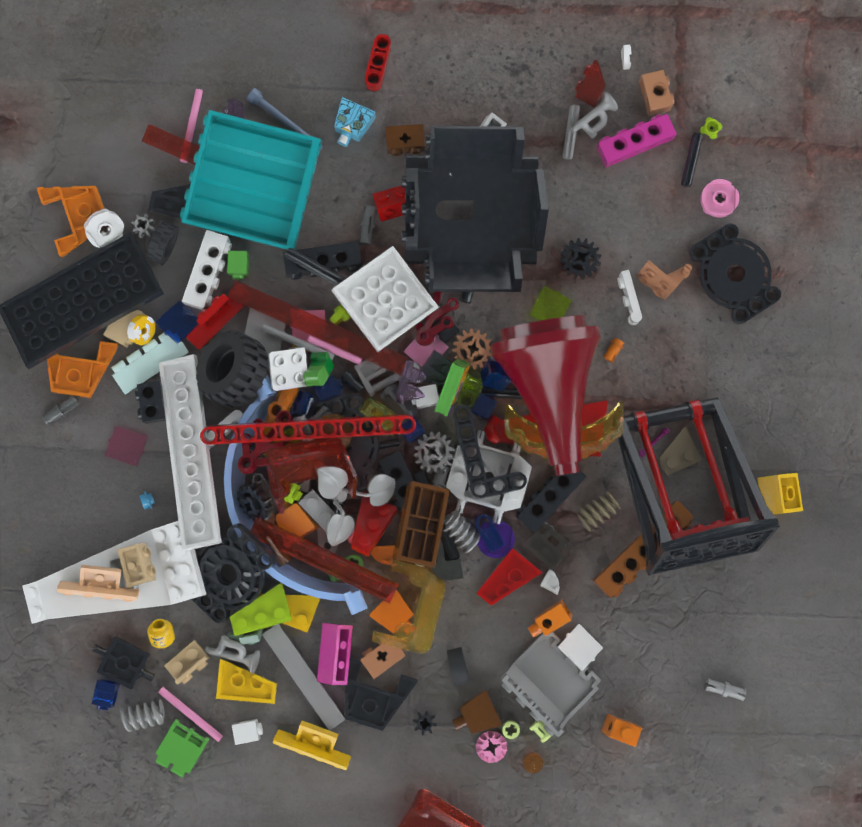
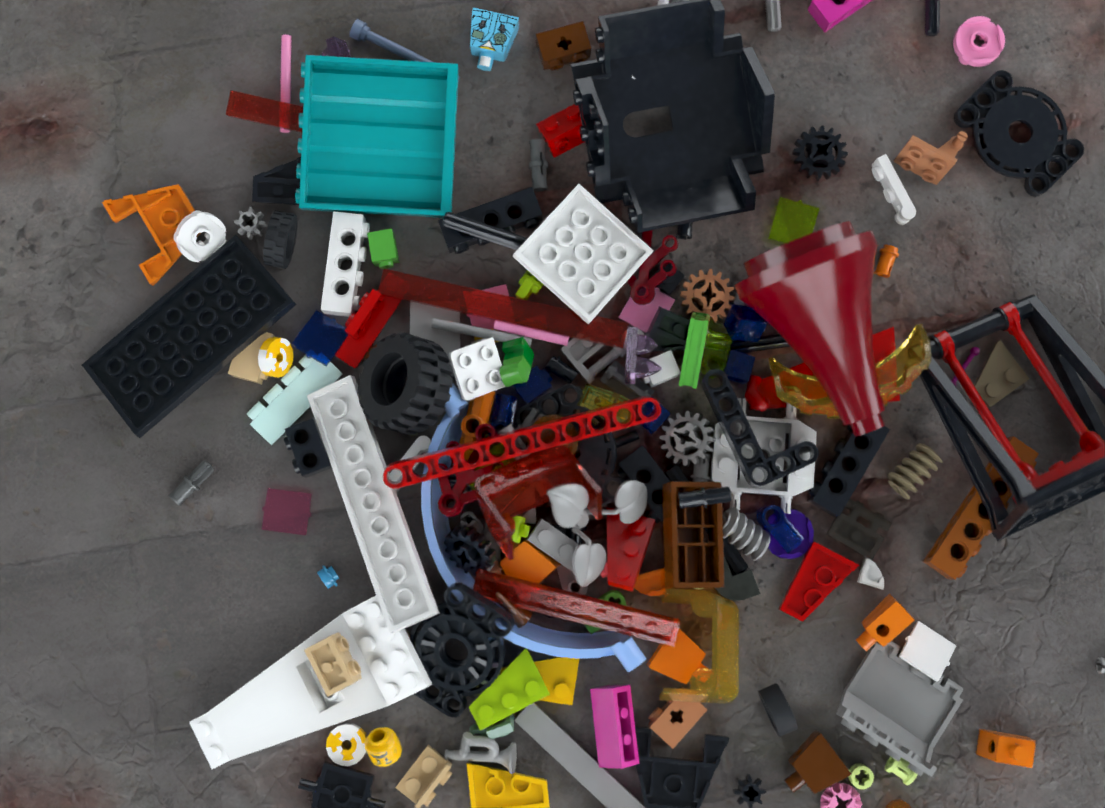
camera: 10 degrees left, 0 degrees up
(79, 375) = (206, 432): orange wing -> none
(99, 582) = (289, 698): light nougat bracket -> none
(127, 631) = (335, 746): none -> white piece
(434, 497) = (704, 497): none -> black axle

